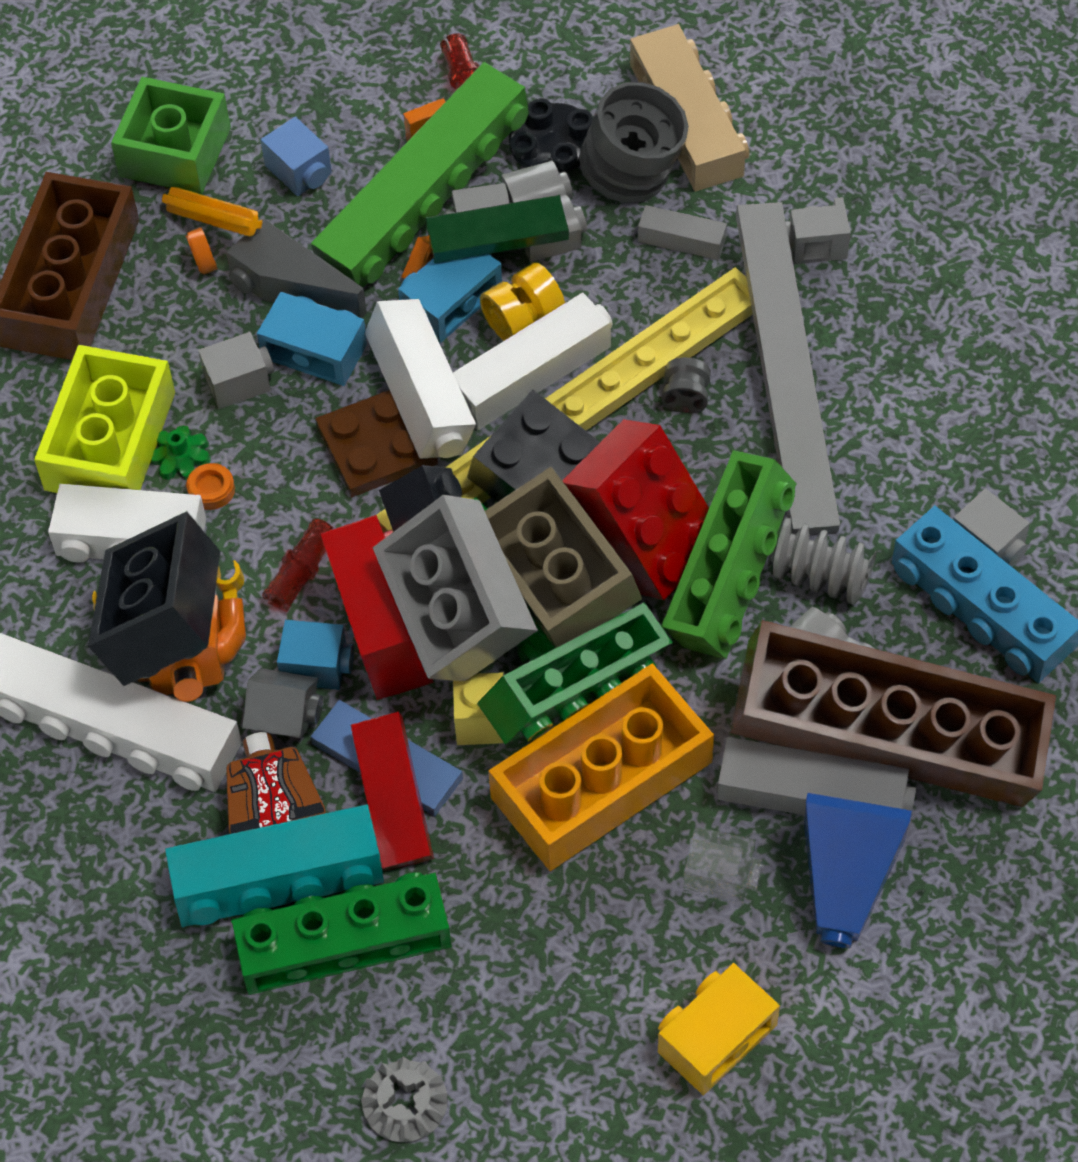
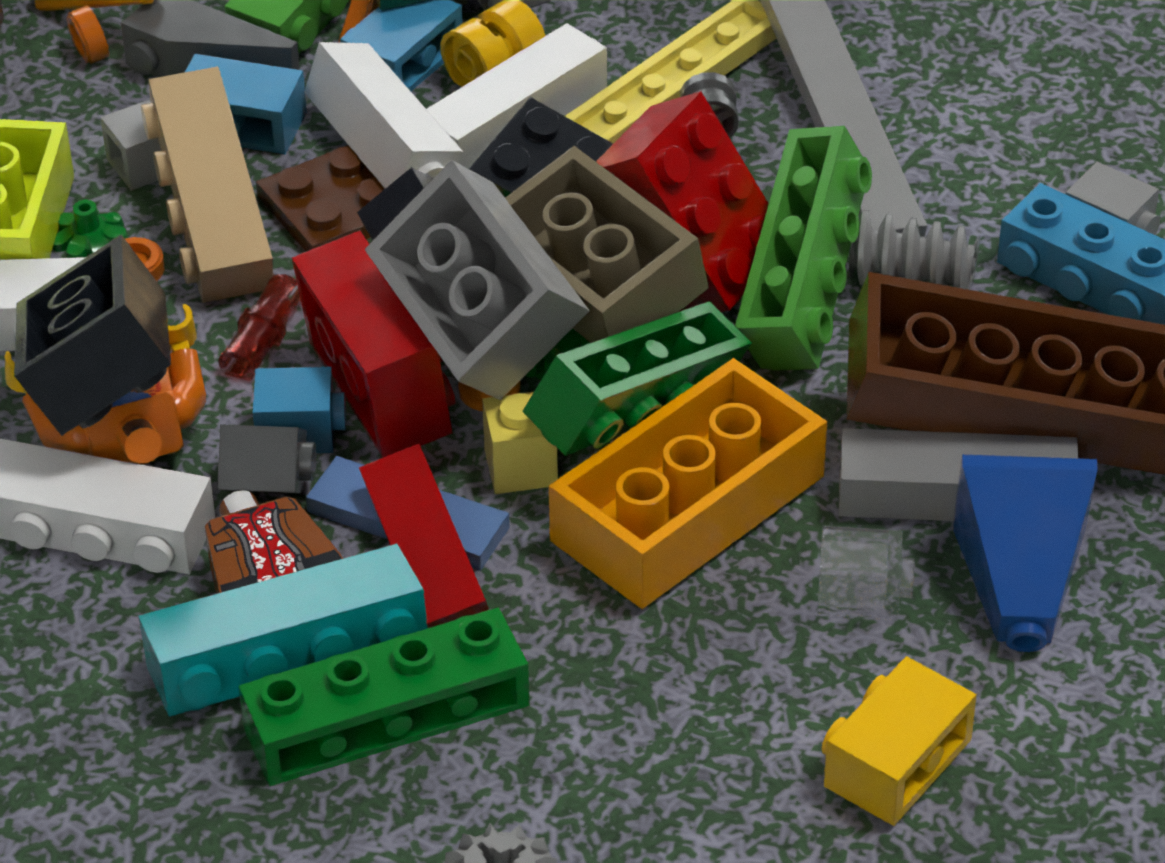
camera: 10 degrees left, 15 degrees down
(273, 430) = (209, 185): none -> tan brick

